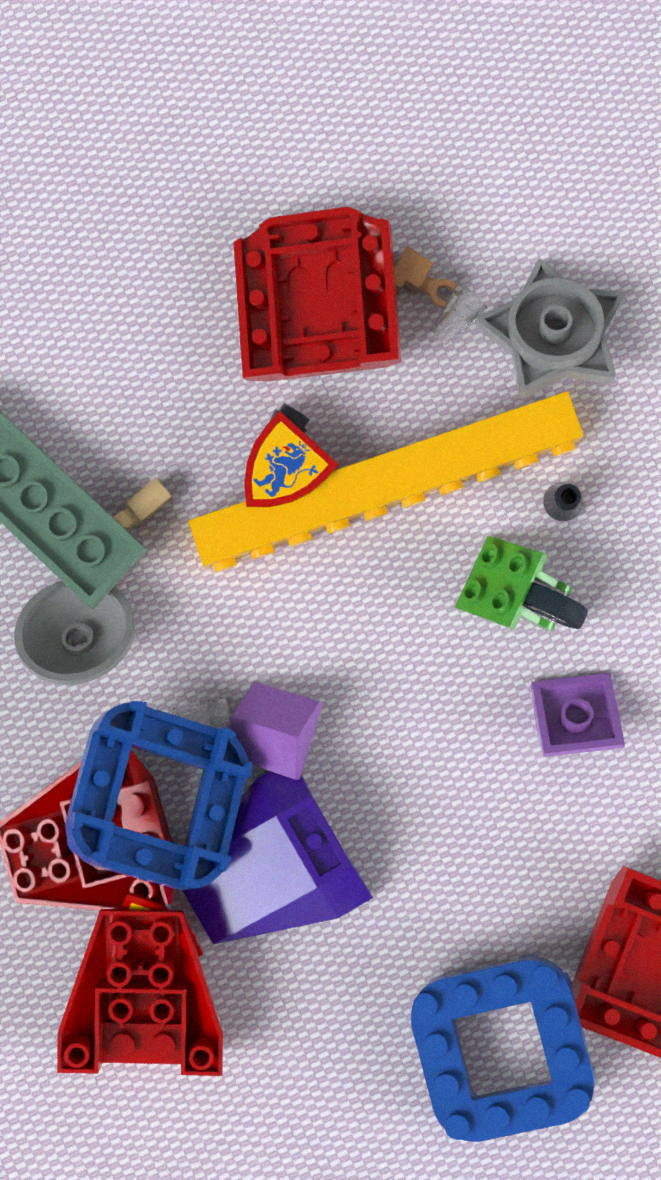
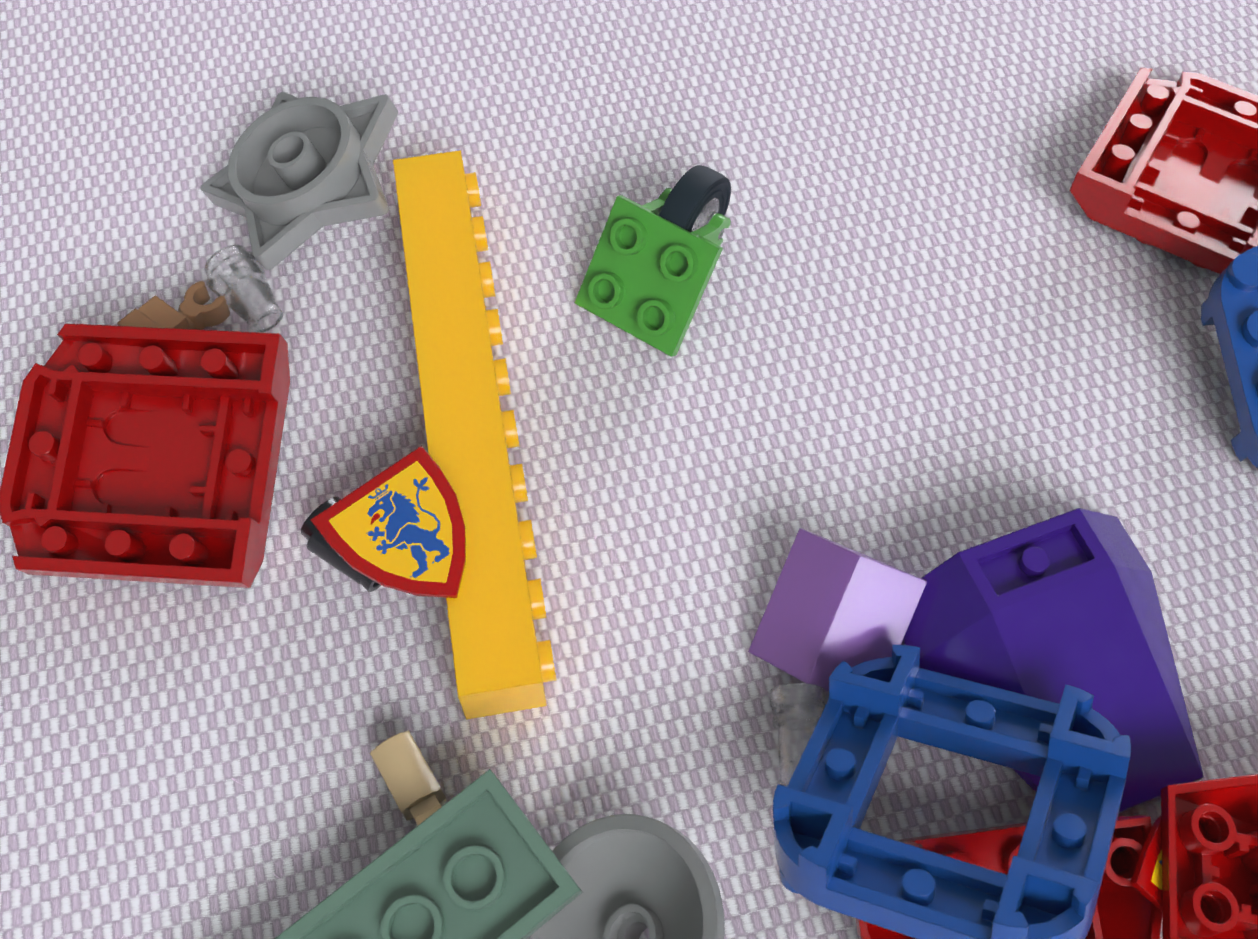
camera: 85 degrees left, 25 degrees down
(556, 507) = (544, 196): black cone -> none
(576, 715) = (851, 225): medium lavender slope -> none

